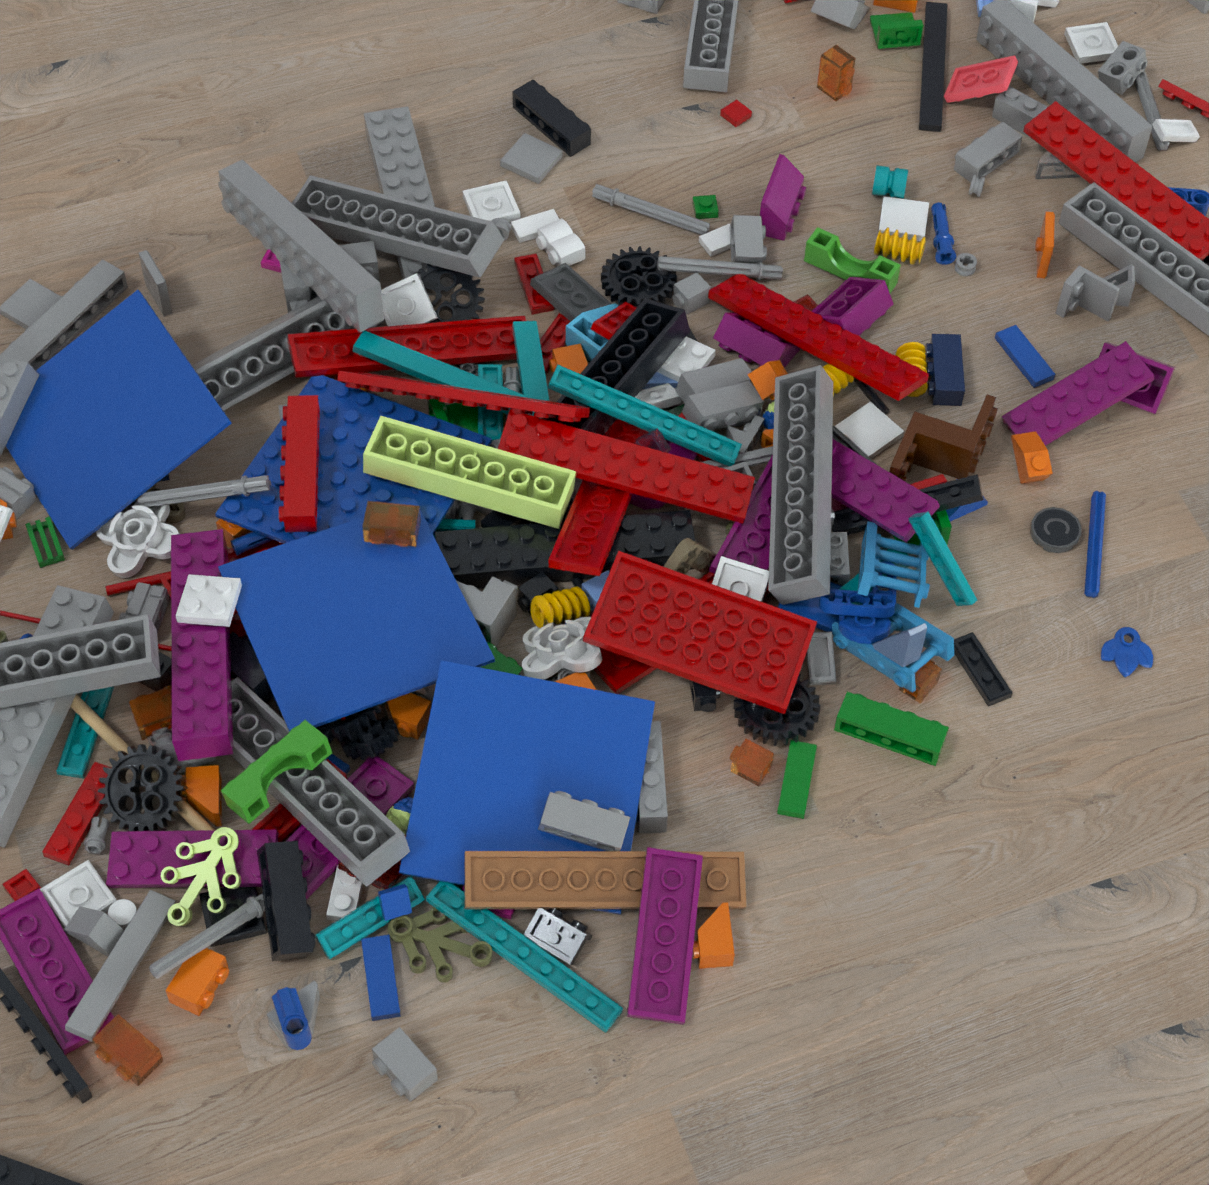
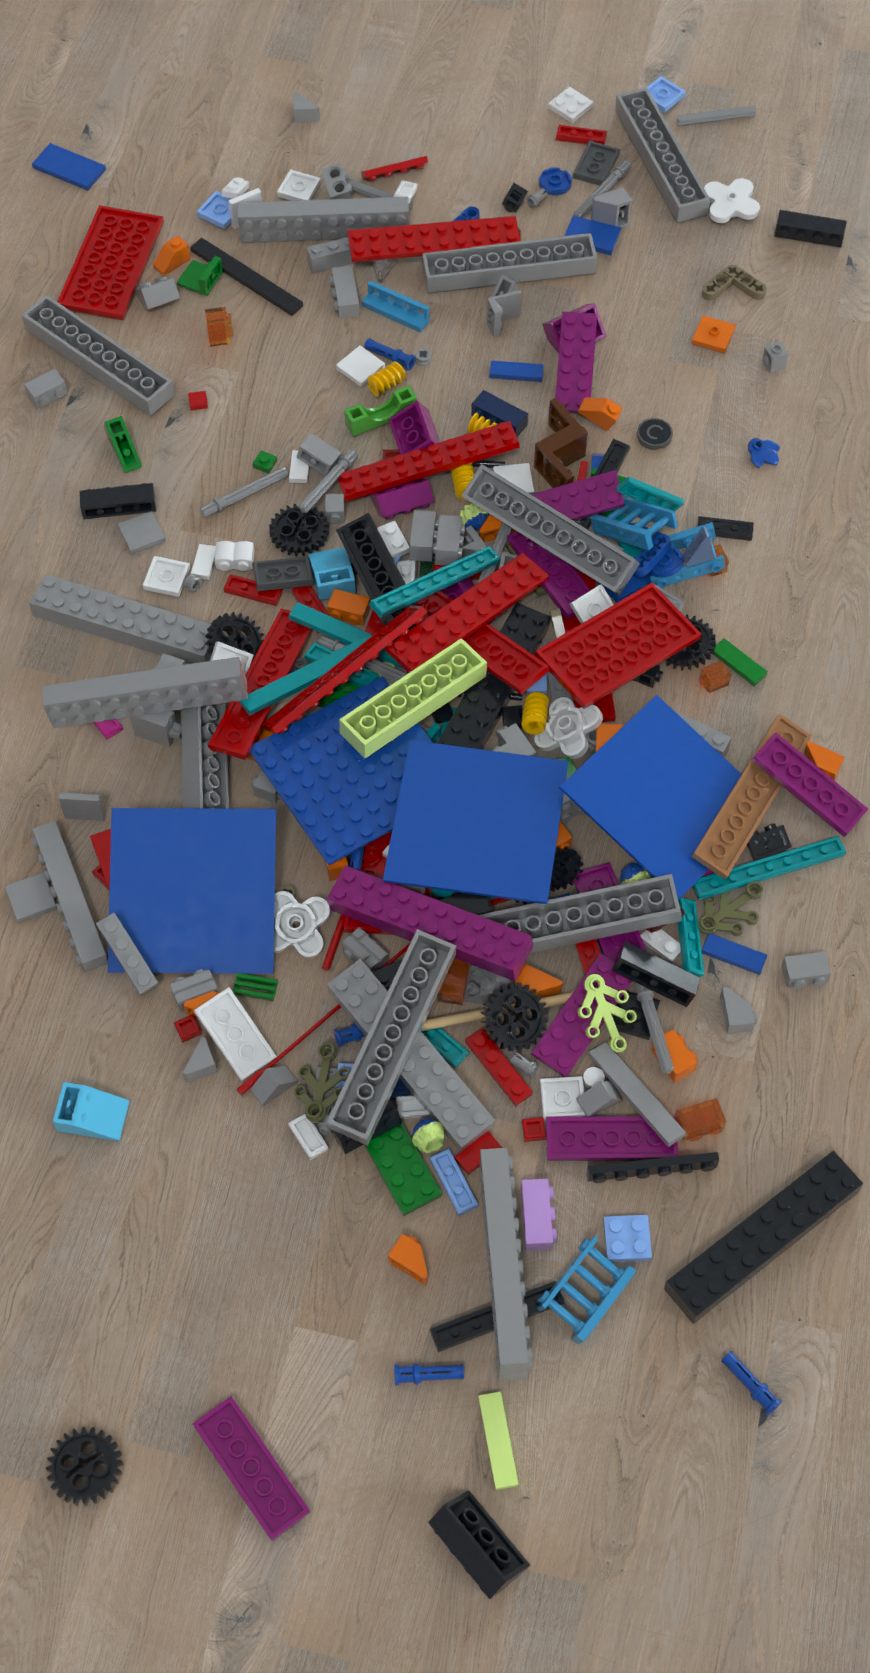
camera: 55 degrees left, 5 degrees up
(206, 491) = (306, 859): light grey axle -> none
(208, 600) = (410, 897): white plate -> none
(292, 1017) = (745, 1009): blue piece -> none
(300, 748) = (579, 945): bright green arch -> none
(301, 464) = (331, 789): red brick -> none
(391, 523) = (427, 760): clear orange brick -> none
(395, 902) = (694, 914): blue tile -> none
(400, 226) = (166, 629): light grey brick -> none
(584, 822) = (712, 780): light grey brick -> none
(612, 321) = (334, 557): red tile -> none
(624, 82) = (122, 444): none -> green slope
(654, 441) = (455, 590): clear pink tile -> none
(764, 378) = (447, 503): orange brick -> none
(782, 199) = (297, 416): magenta slope -> none
(890, 182) = (328, 355): teal wheel -> none
(891, 728) = (739, 594): green brick -> none
(976, 185) = (367, 313): light grey bush -> none
(981, 79) = (287, 257): coral plate -> none
(1009, 206) = (396, 309): none -> dark azure fence
(1045, 244) = (447, 307): orange plate -> none
(1095, 544) = (678, 421): blue axle -> none

